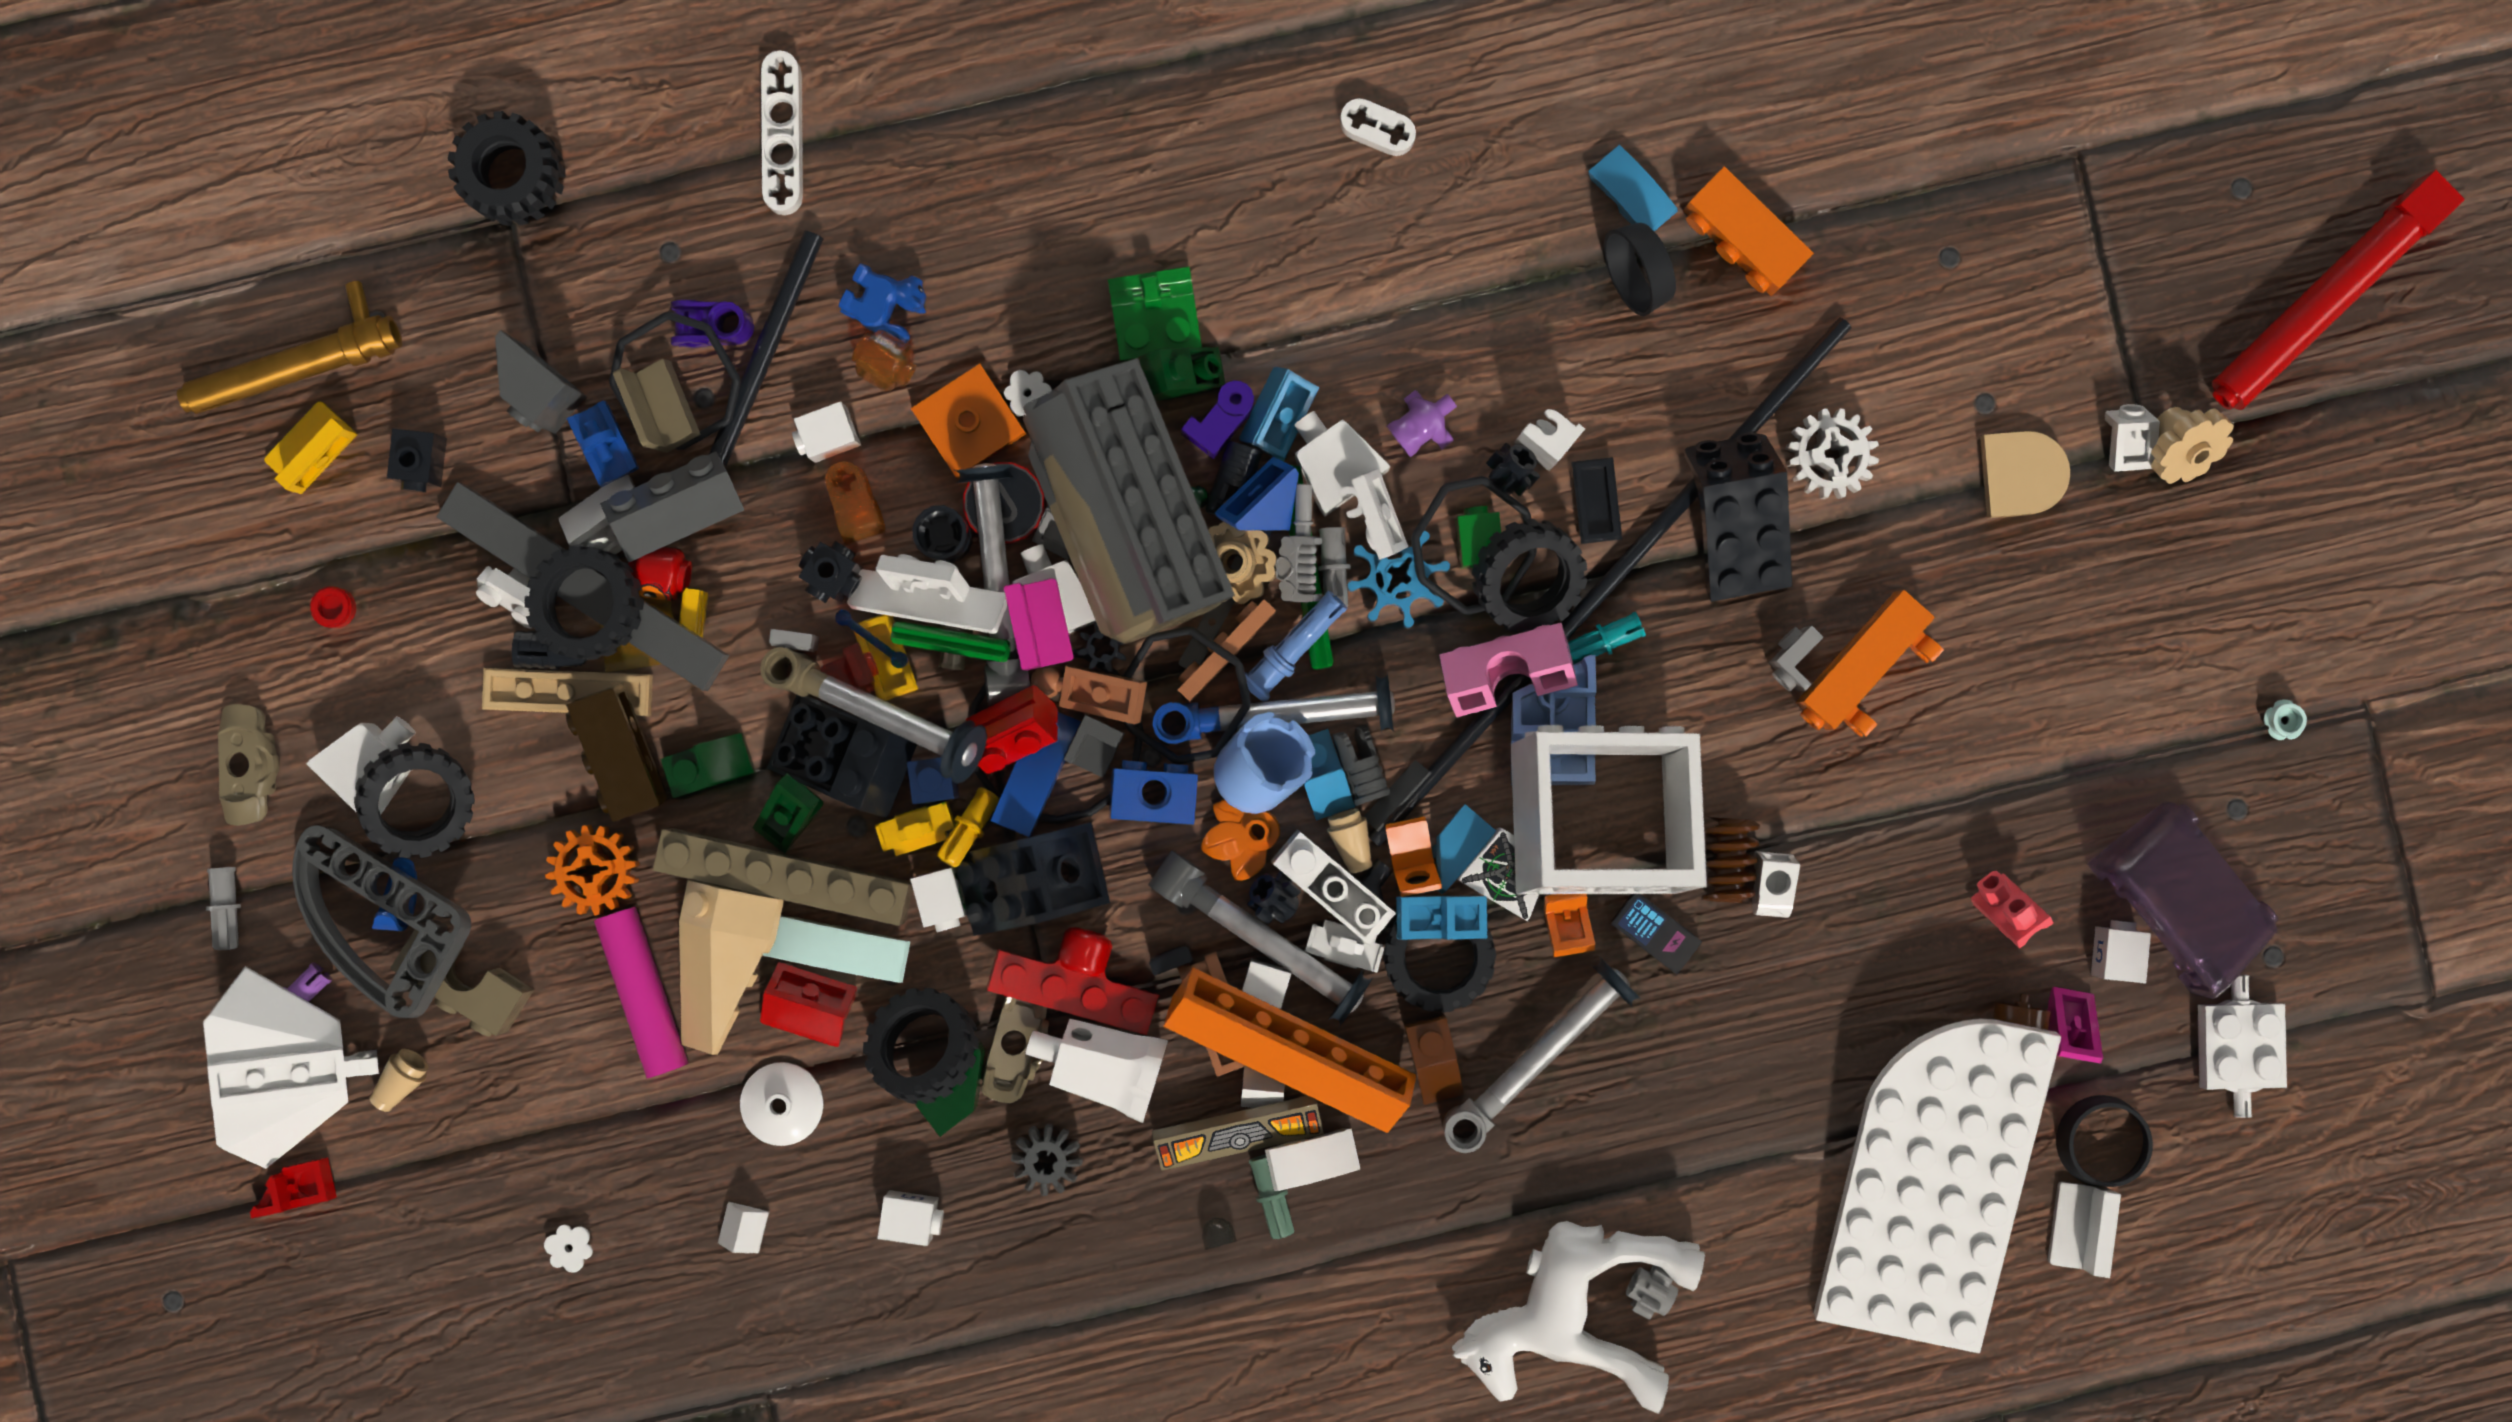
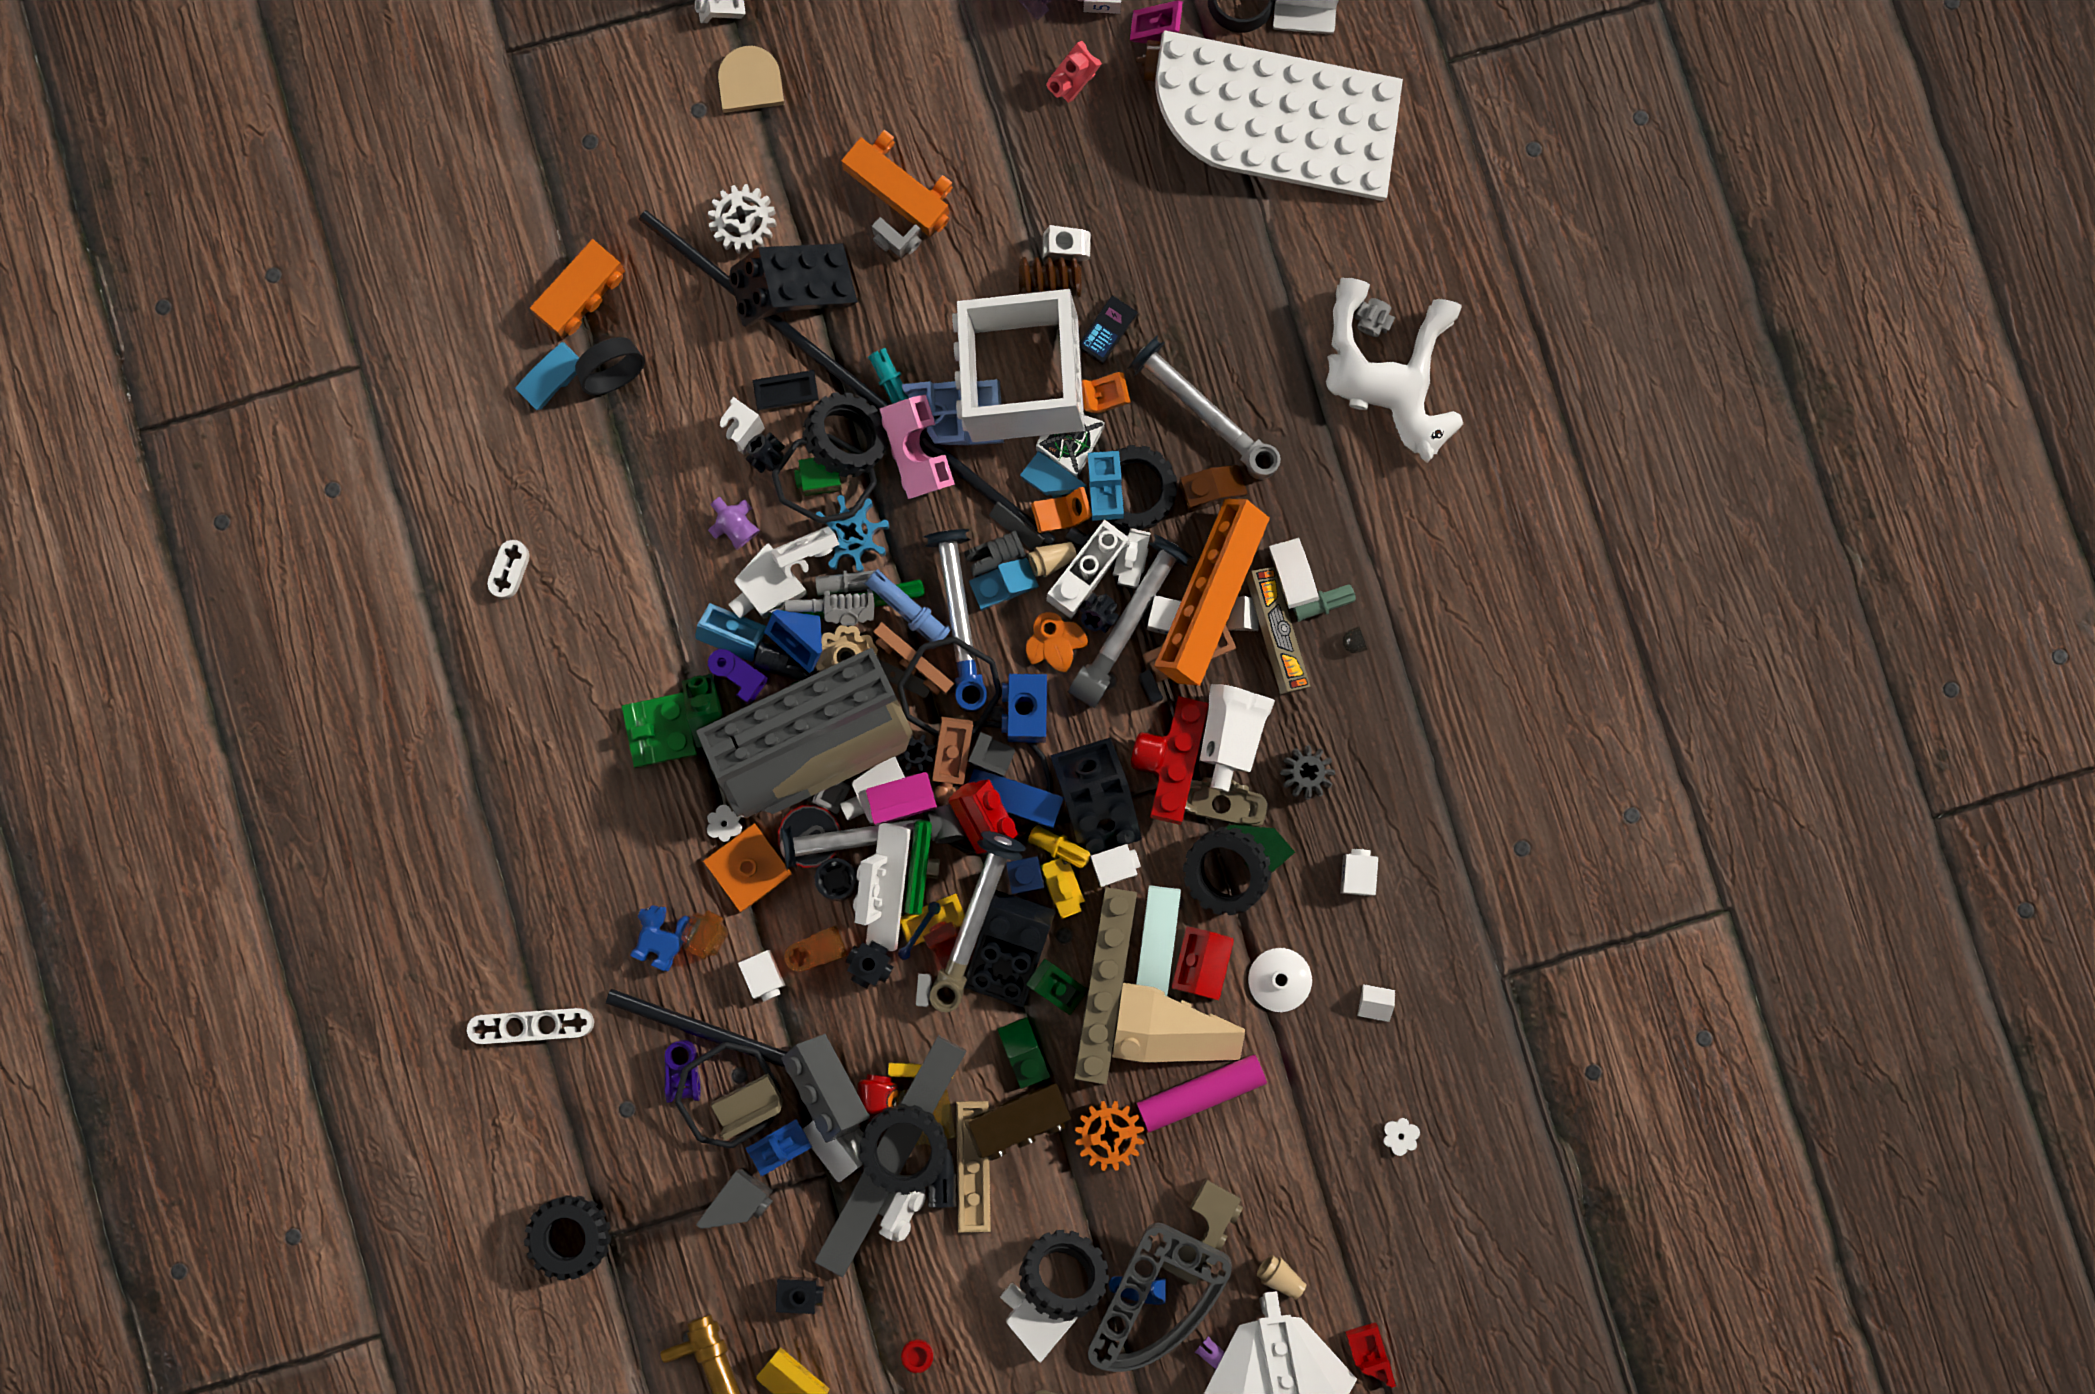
camera: 95 degrees left, 5 degrees down
(1263, 763) = (998, 623): light blue cylinder -> none

